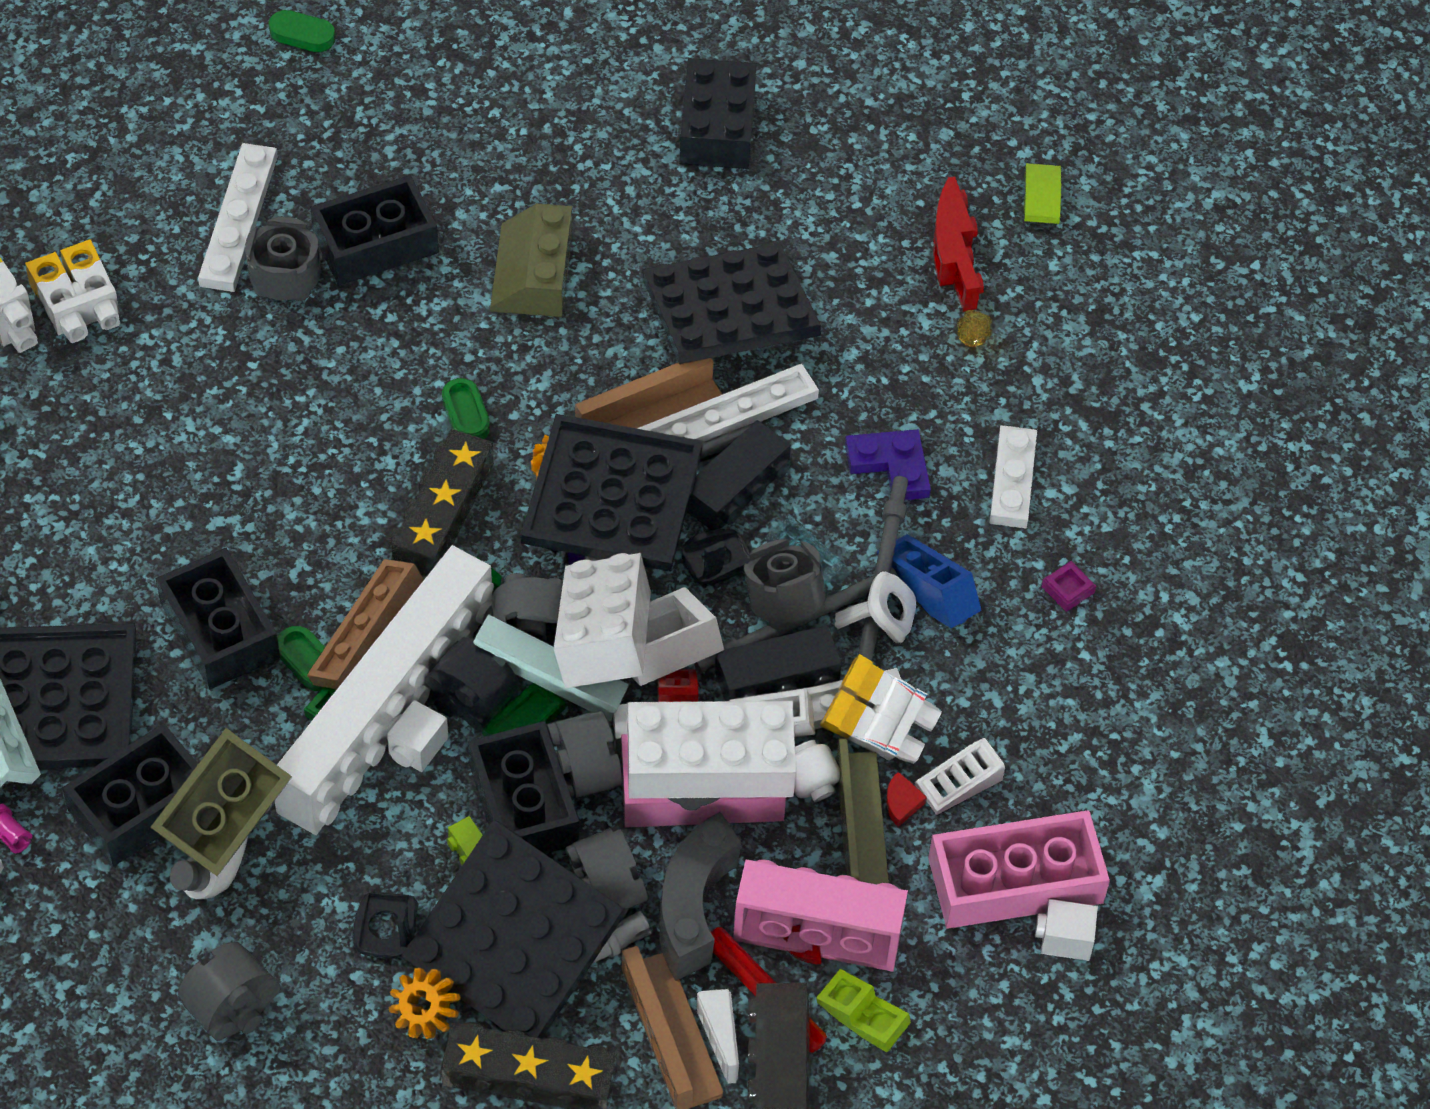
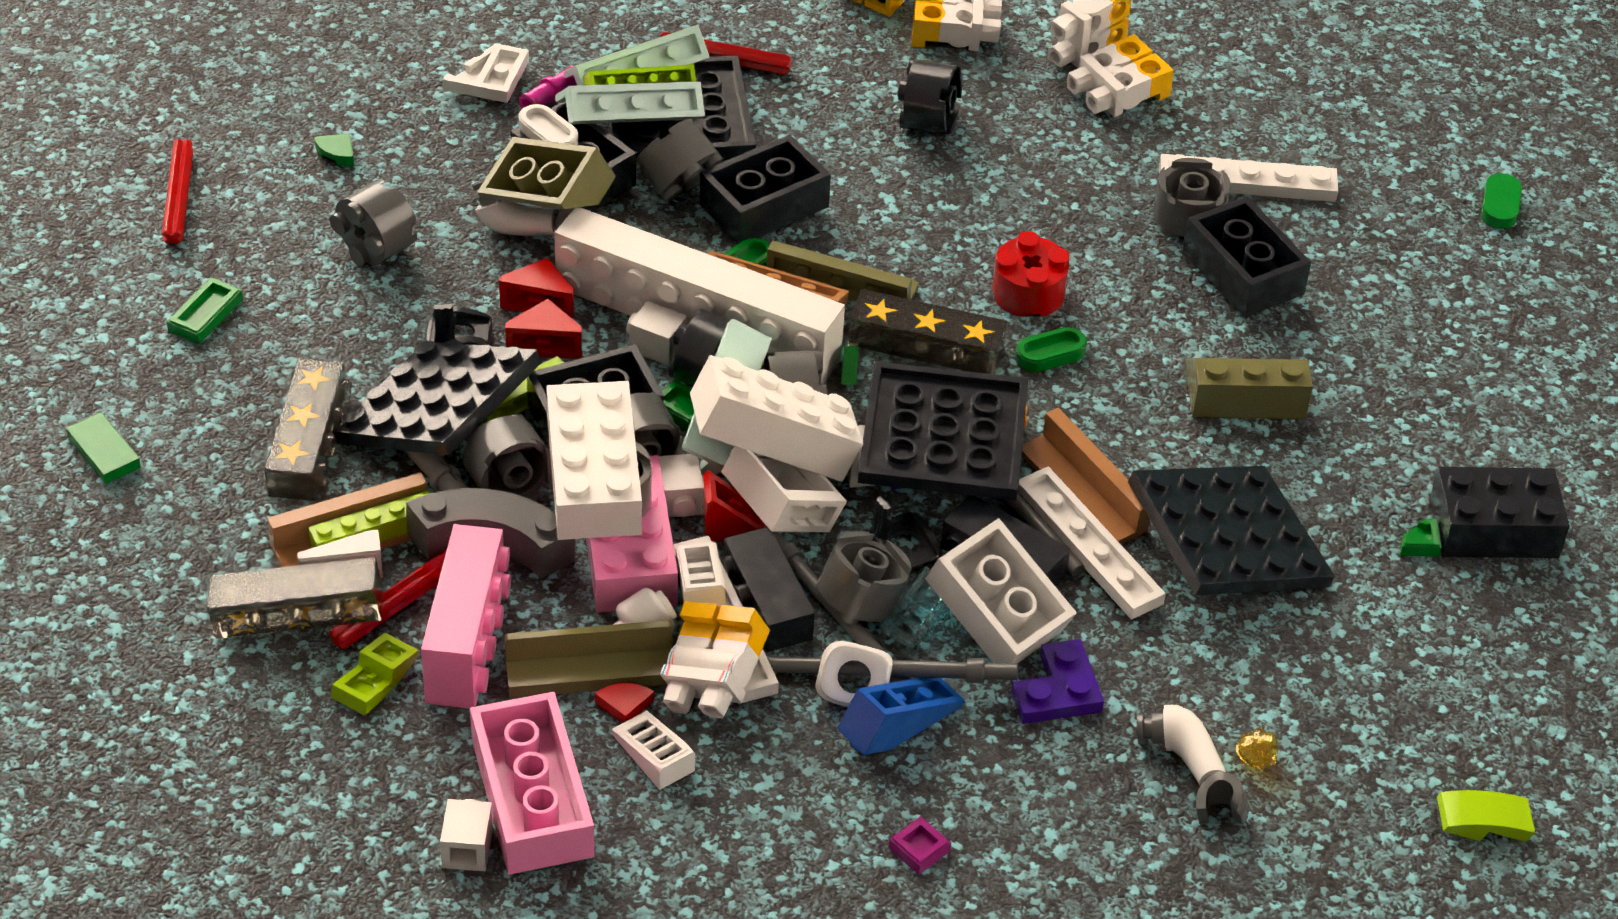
camera: 85 degrees right, 10 degrees down
(33, 715) = (658, 74): none -> lime piece
(58, 1046) = (336, 147): none -> tile
(77, 721) = (632, 102): none -> light aqua panel
(94, 452) = (930, 96): none -> black brick
(118, 802) = (544, 124): none -> white tile
(171, 687) = (678, 159): none -> dark grey brick
(339, 838) = (533, 285): none -> red slope
(342, 570) = (838, 272): none -> olive panel
(374, 407) = (1030, 275): none -> red brick
(403, 838) = (547, 330): none -> red slope
(415, 1015) = (369, 350): light orange gear -> none
(676, 1006) = (386, 518): none -> lime piece
(732, 176) = (1422, 540): none -> green tile
(818, 477) = (1000, 594): none -> white brick
(953, 245) = (1390, 722): red slope -> none
(965, 373) = (1190, 740): none -> piece
(1013, 476) = (1062, 793): white plate -> none

